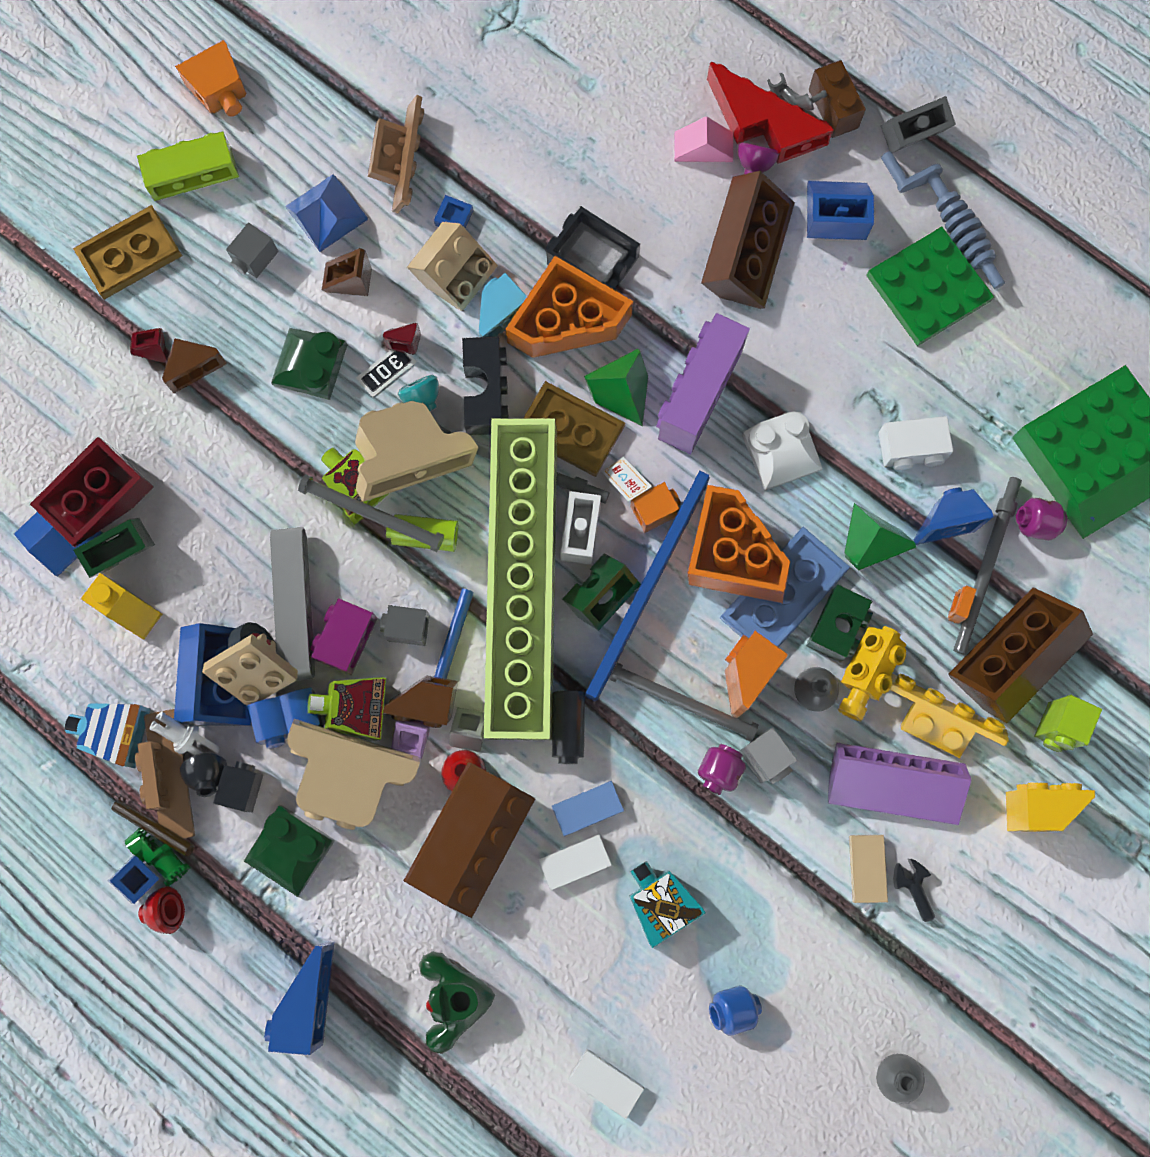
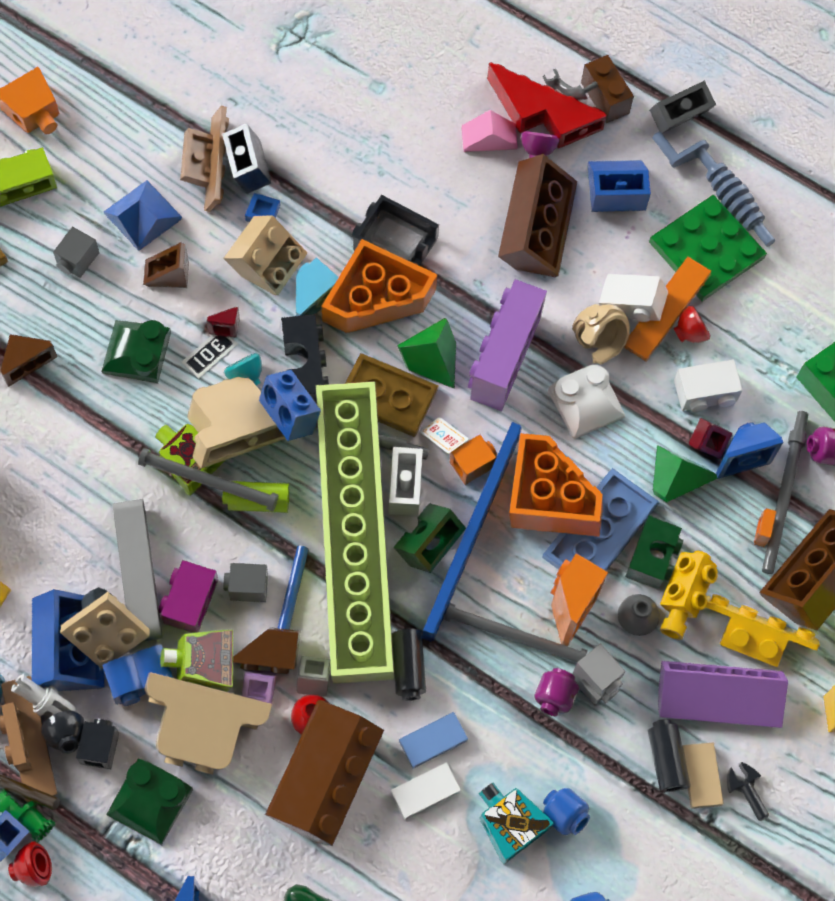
camera: 10 degrees left, 10 degrees down
(439, 156) = (246, 158): none -> brick
(462, 438) = (289, 405): none -> blue brick
(720, 898) = (566, 811): none -> blue head
(807, 371) = (602, 328): none -> tan helmet
(834, 847) = (668, 756): none -> black brick
(844, 339) = (635, 295): none -> white brick
(879, 353) = (681, 291): none -> orange tile
(904, 375) = (691, 327): none -> red brick
(912, 500) = (710, 438): none -> dark red slope

